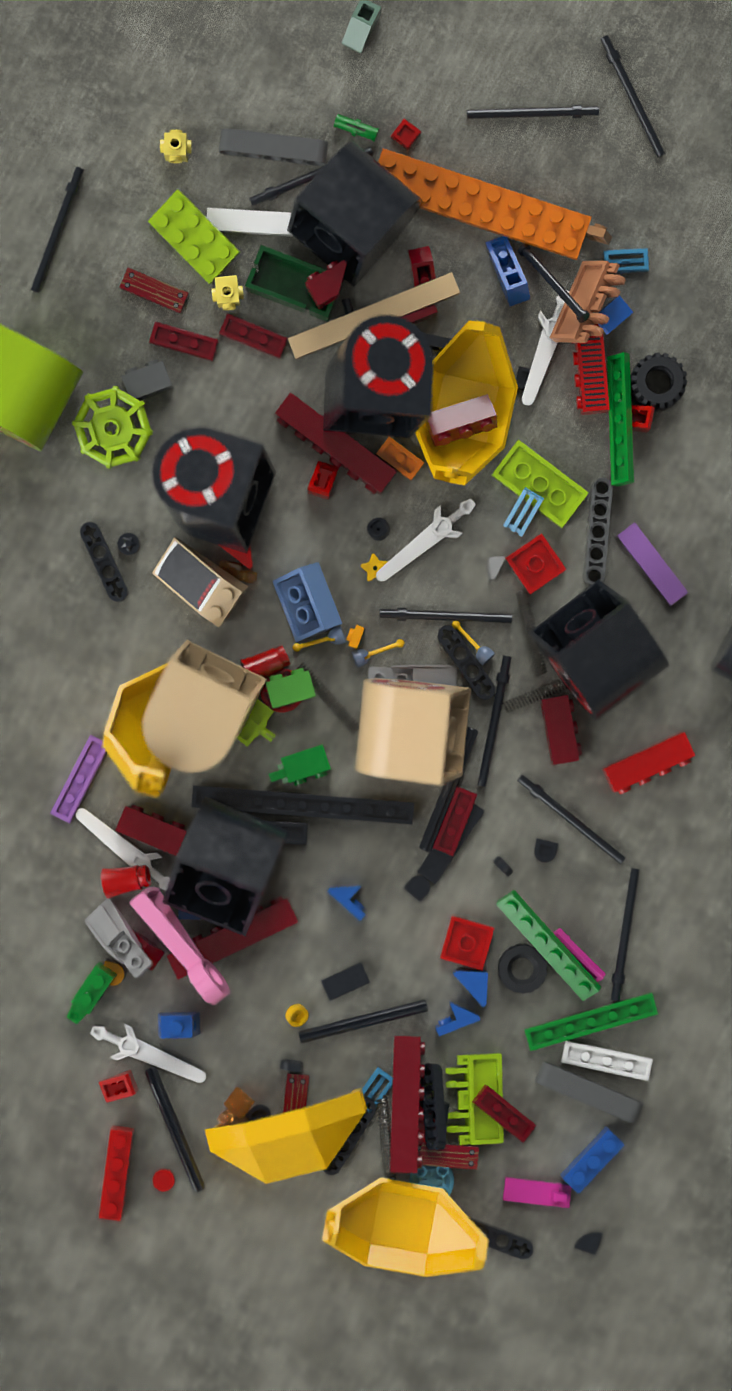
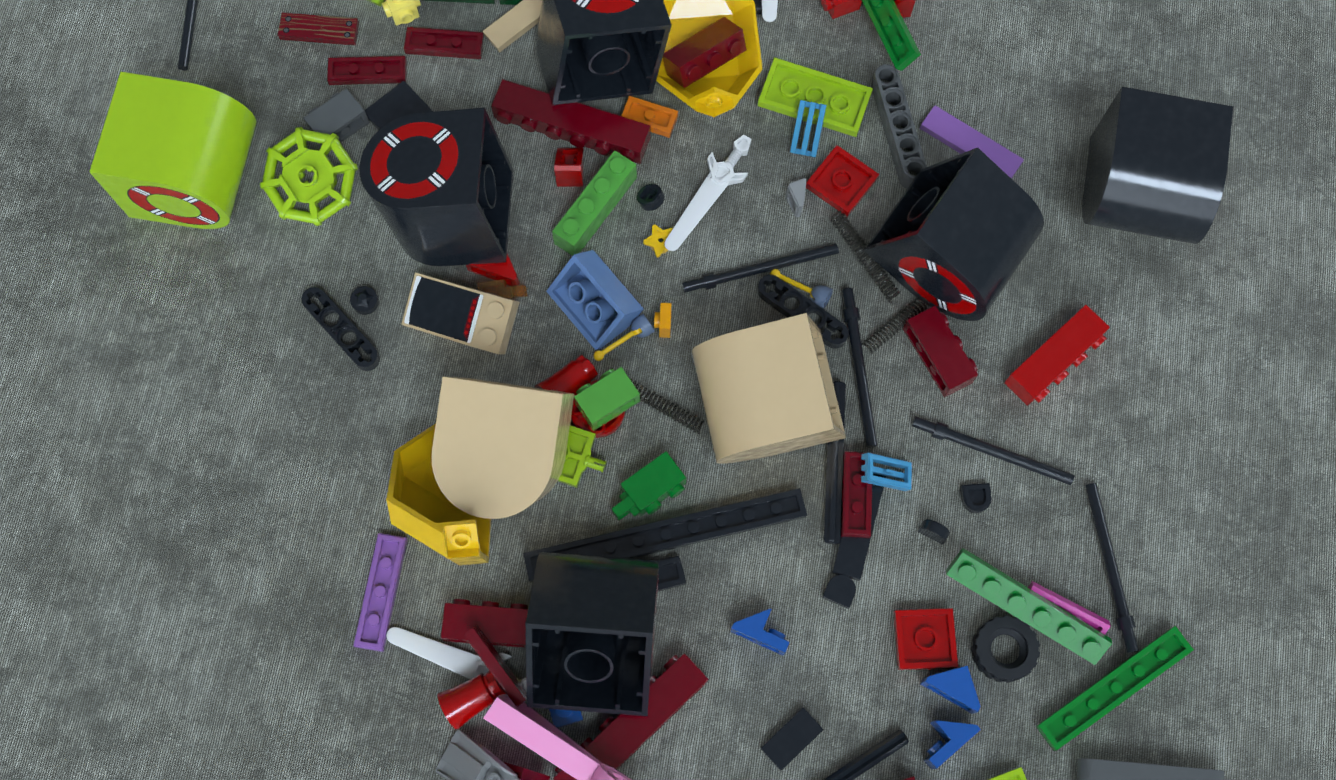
camera: 15 degrees left, 15 degrees down
(149, 864) = (496, 665): none -> dark red tile
(200, 391) = (395, 104): none -> black tile
(332, 522) = (595, 203): none -> bright green brick
(362, 656) = (678, 341): hinge -> none
(469, 806) = (869, 470): none -> dark azure tile
(607, 1060) = (1153, 732): white tile -> none

